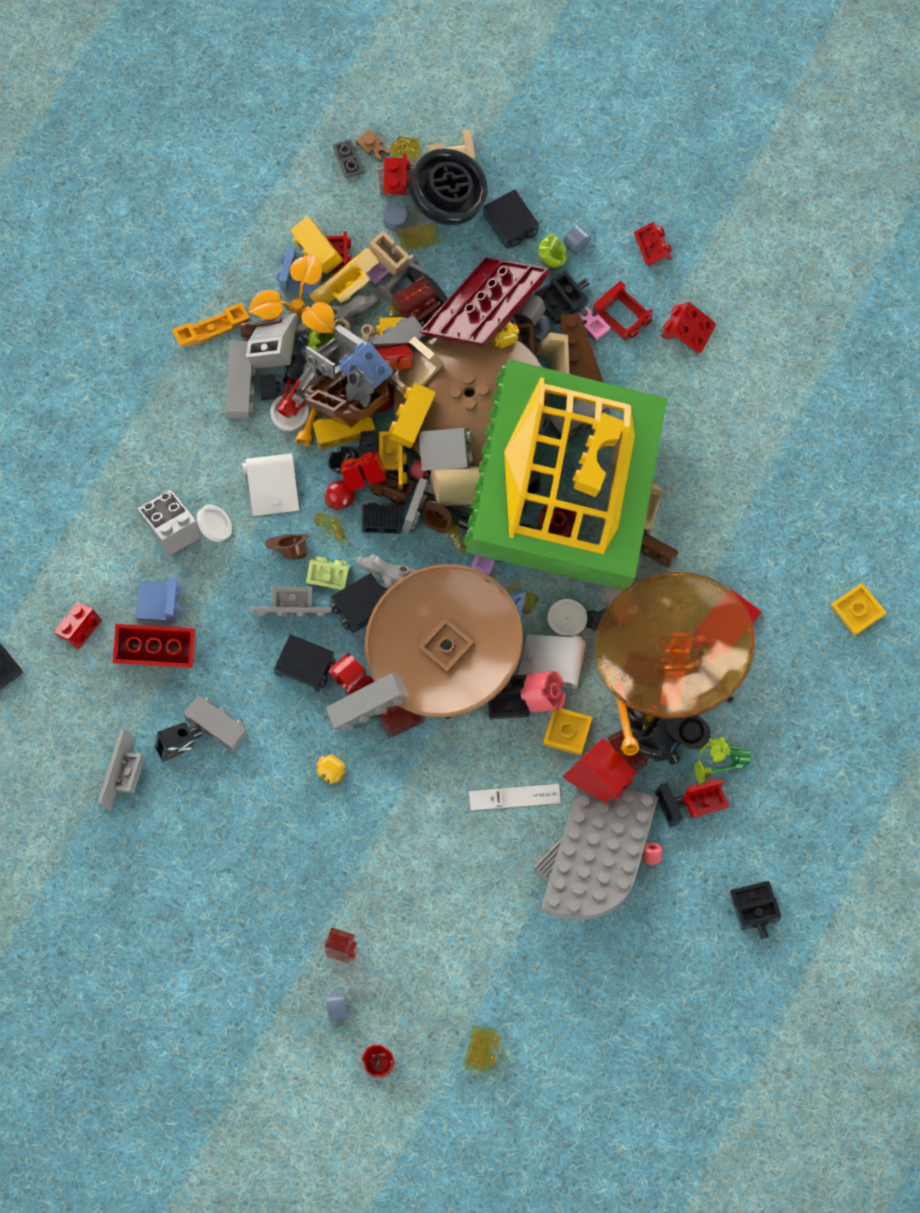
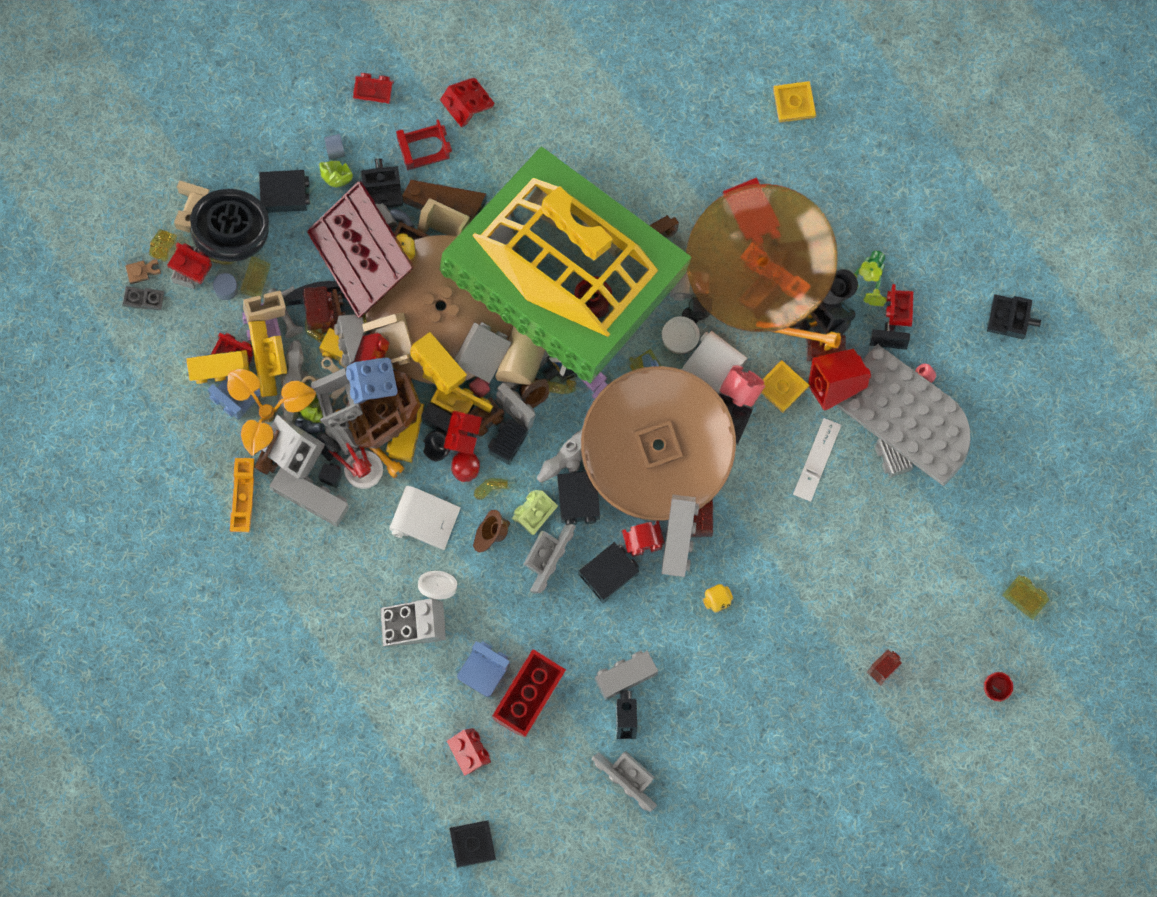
camera: 65 degrees left, 5 degrees up
(336, 1006) = (933, 698): sand blue piece -> none
(359, 387) = (394, 392): dark grey plate -> none
(594, 326) = (423, 173): bright pink plate -> none

